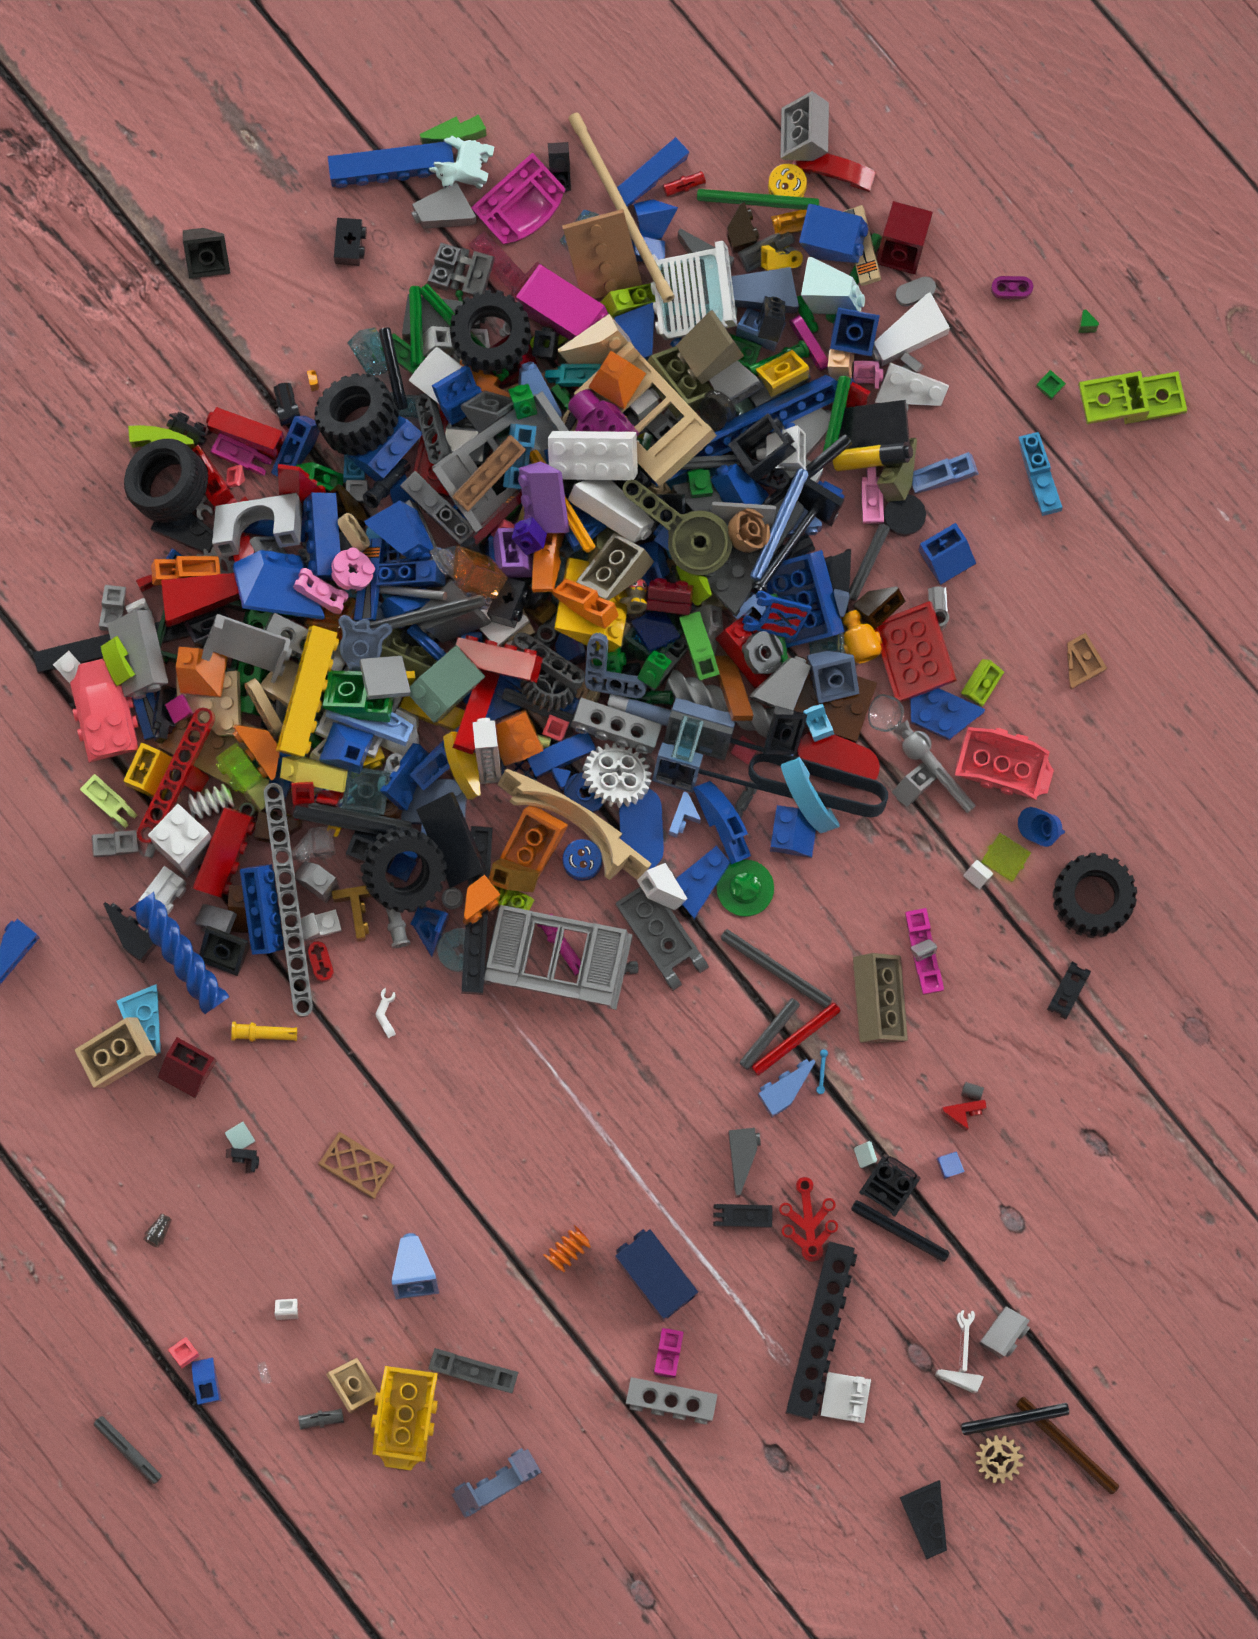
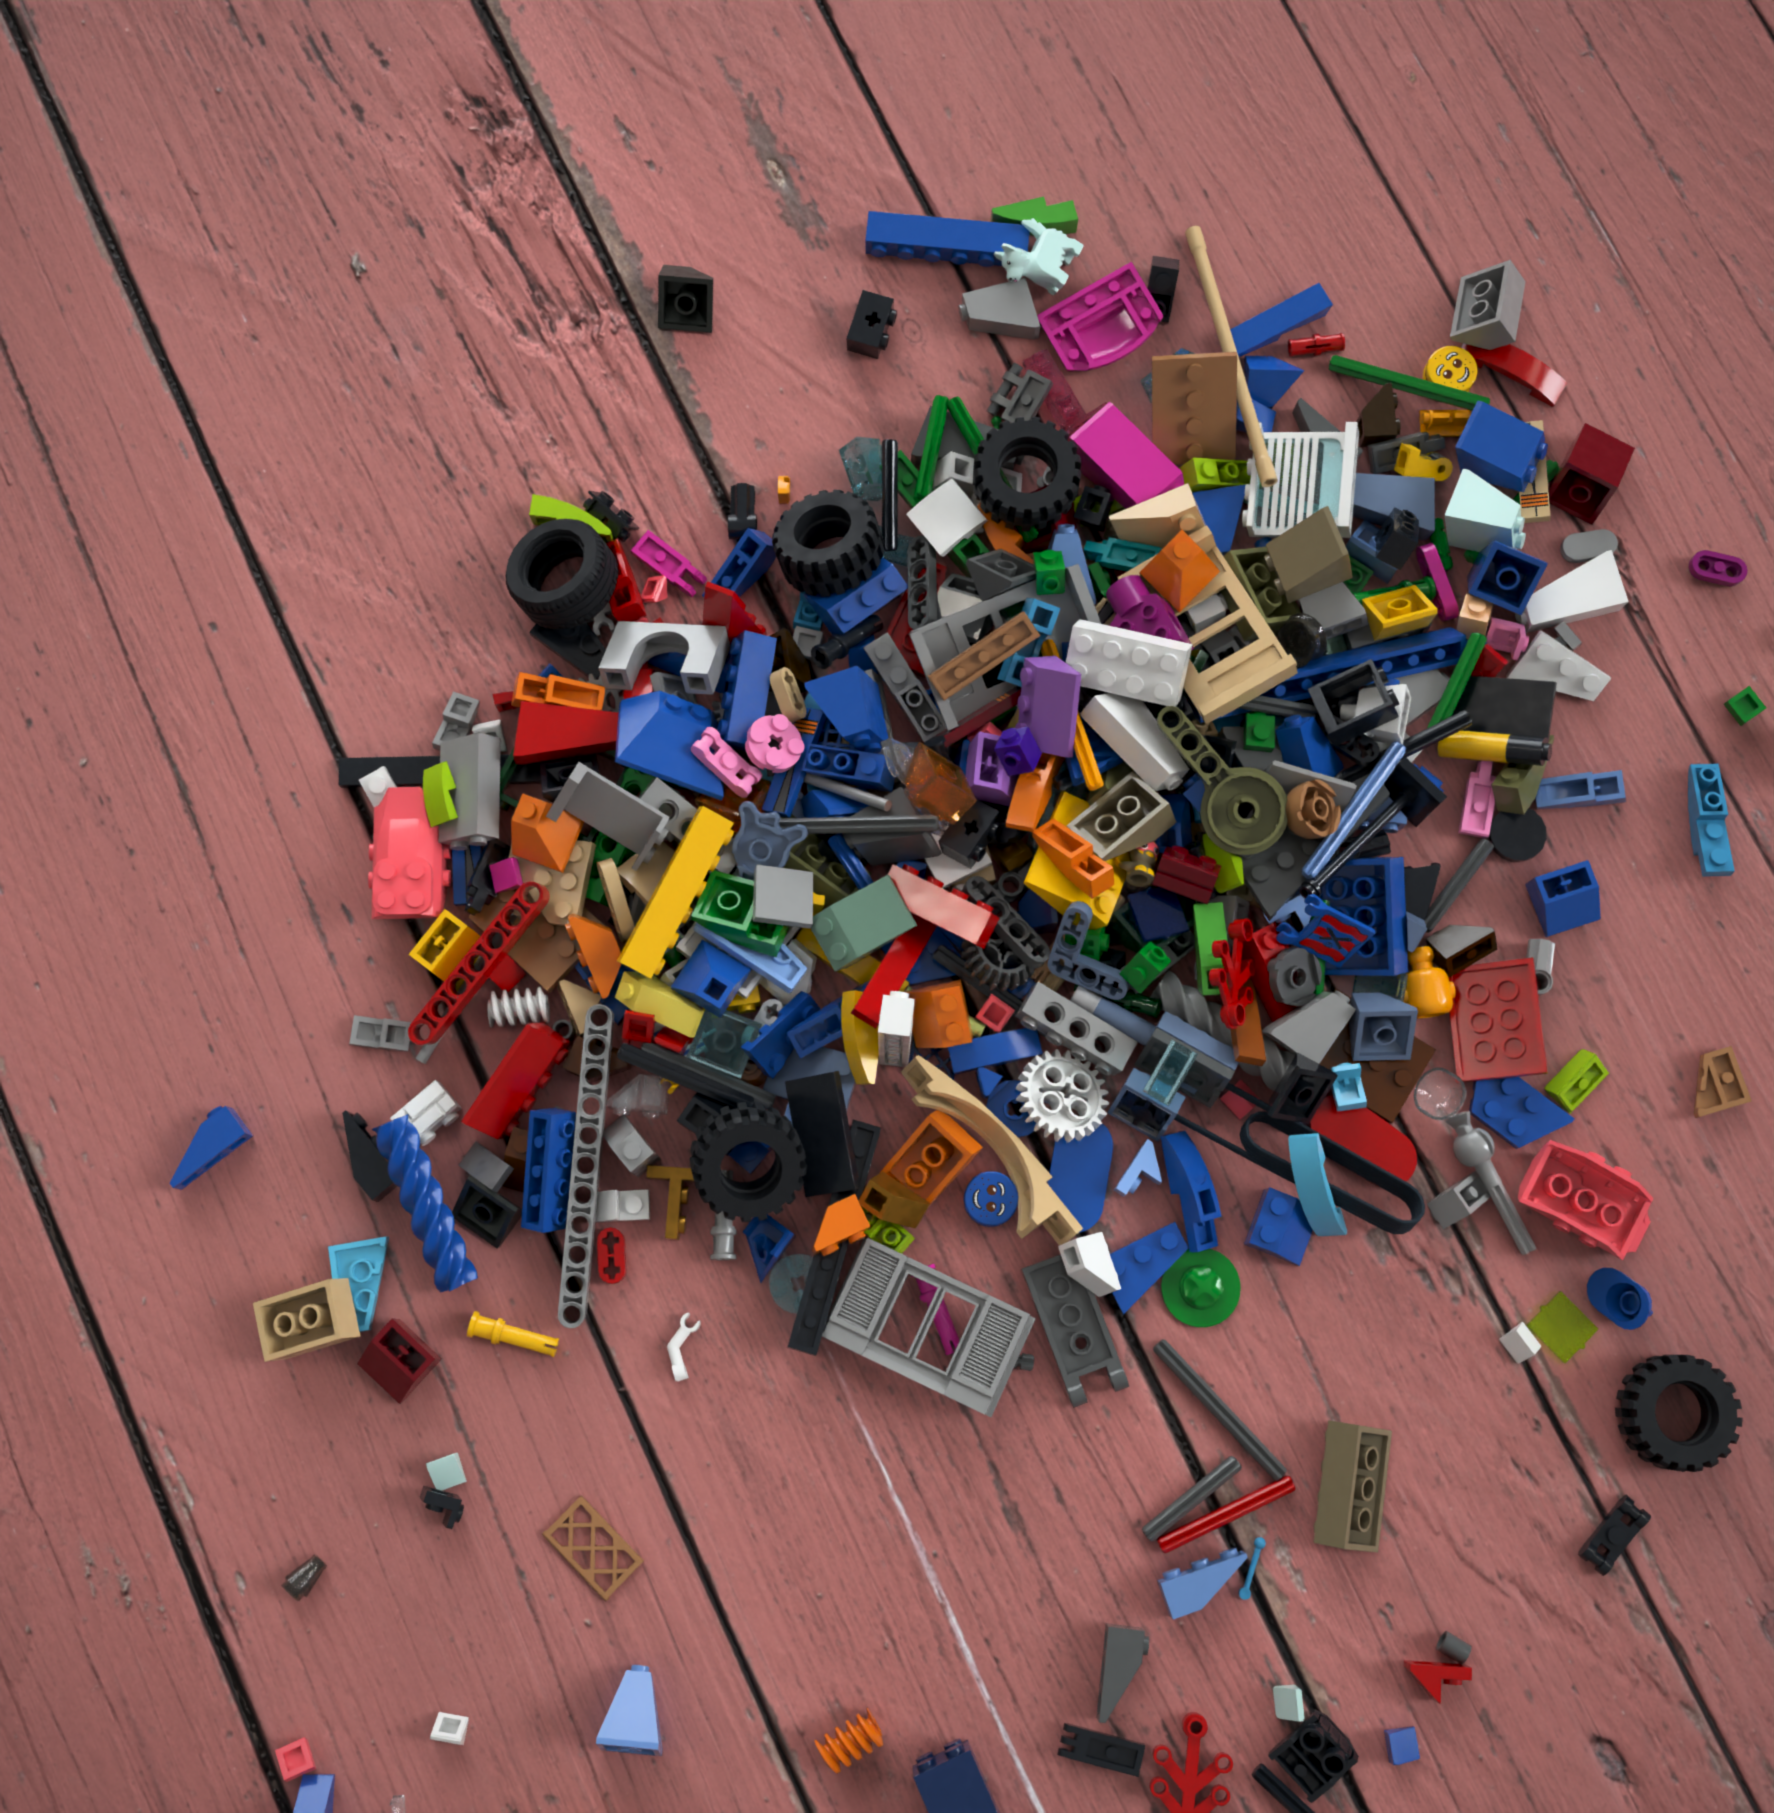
camera: 15 degrees right, 0 degrees up
(107, 799) = (385, 972): yellowish green hinge -> none
(181, 840) = (461, 1052): white brick -> none
(239, 769) = (562, 973): clear neon green brick -> none
(247, 431) = (685, 536): red slope -> none
(324, 475) = (766, 612): green slope -> none
(443, 266) = (984, 382): flat silver slope -> none
(452, 898) = (806, 1210): light grey plate -> none
(455, 391) = (962, 540): blue slope -> none
(720, 659) = (1235, 972): none -> red plant
(744, 800) = (1225, 1167): dark grey axle -> none
(924, 949) = (1427, 1432): light grey slope -> none
(927, 969) = (1425, 1435): dark pink slope -> none

